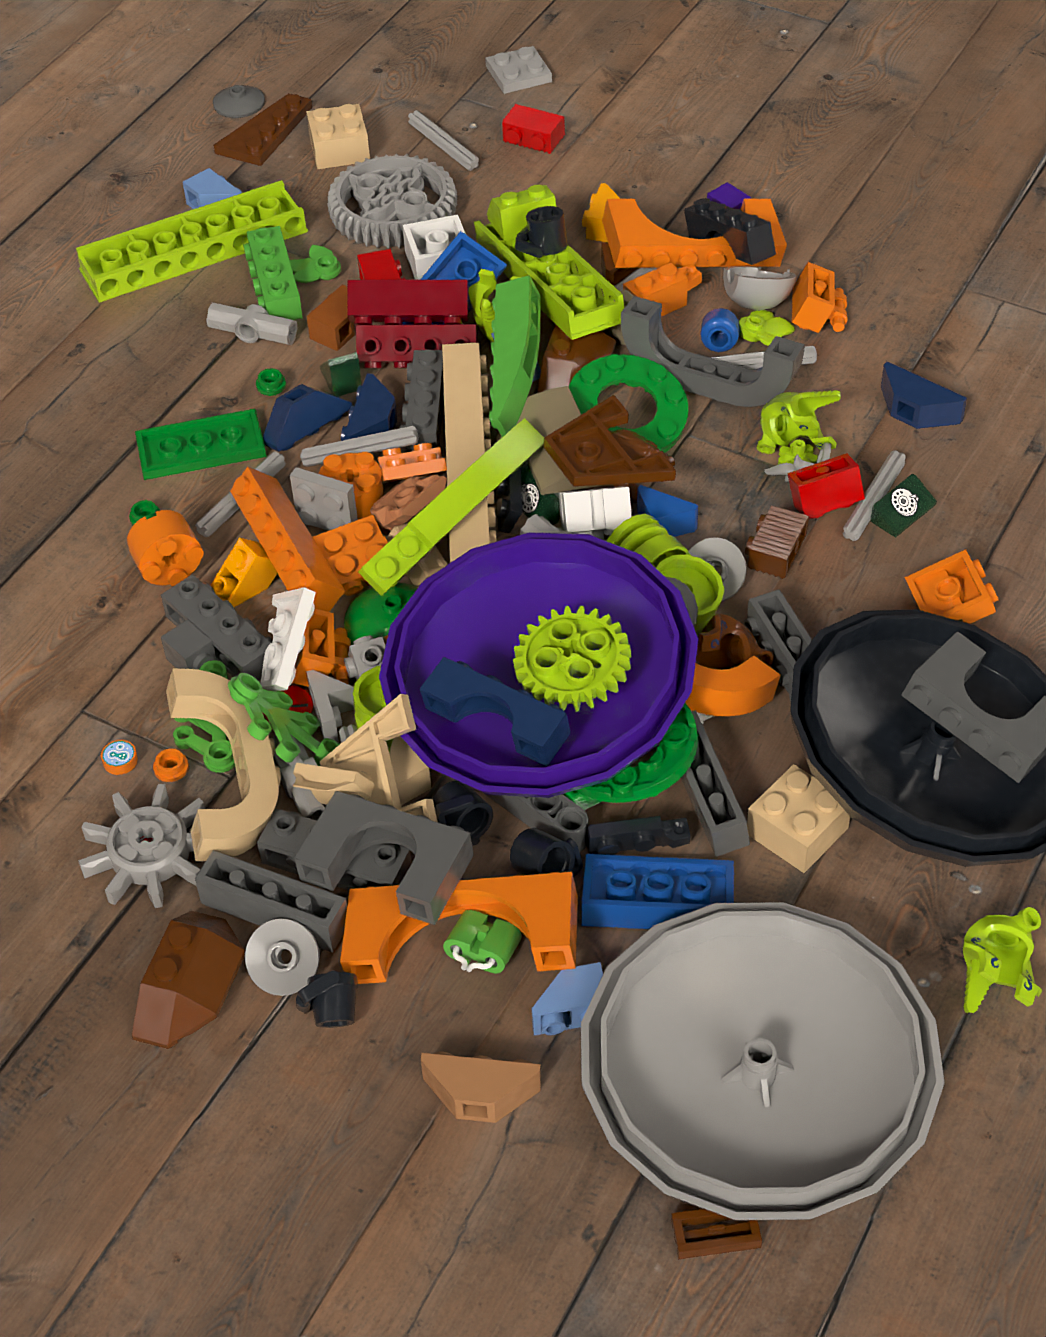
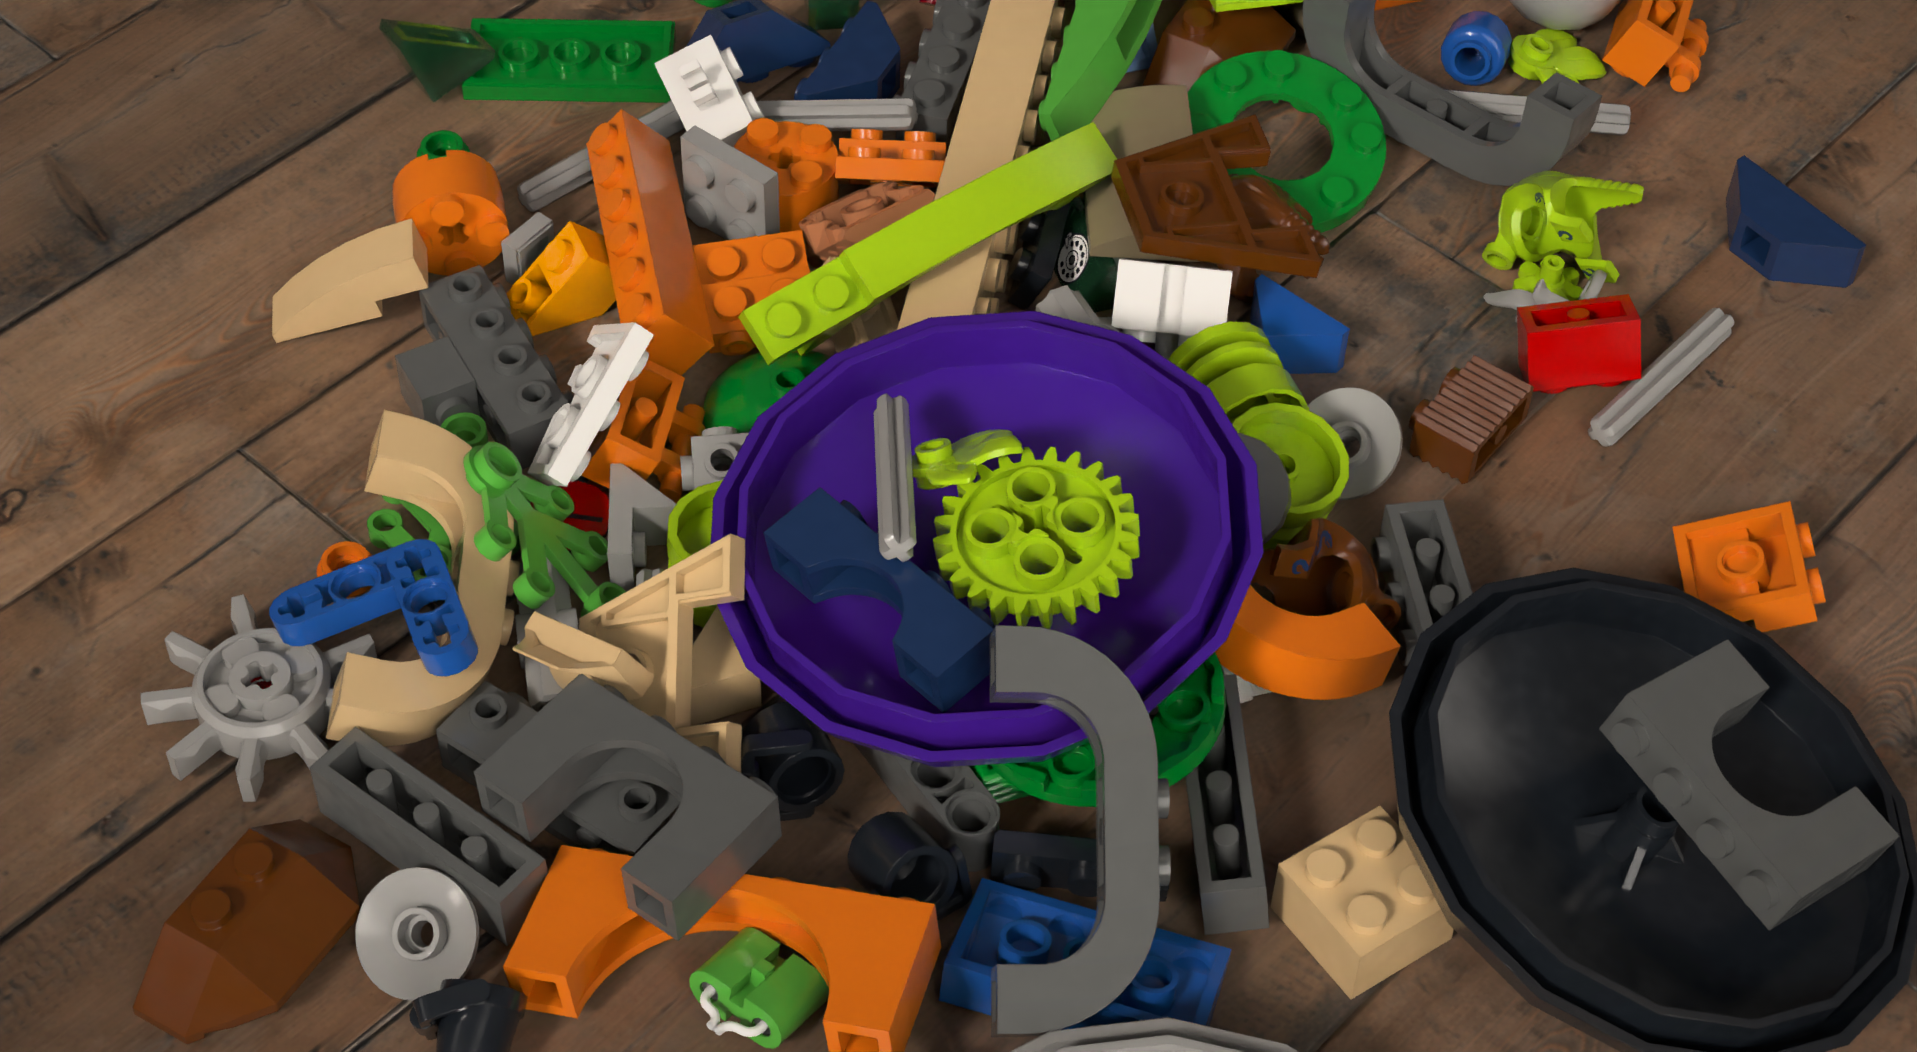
camera: 10 degrees right, 0 degrees up
(119, 600) = (351, 282): none -> tan slope
(119, 757) = (270, 537): tile -> none
(123, 457) = (437, 55): none -> clear green slope
(208, 769) = (305, 618): none -> blue beam
(214, 558) = (525, 245): none -> light grey tile
(292, 447) = (706, 90): none -> white brick
(483, 642) = (894, 478): none -> light grey axle
(515, 626) = (945, 464): none -> lime plate
(665, 797) = (1130, 799): none -> dark grey arch
(902, 506) = (1704, 405): clear green slope -> none

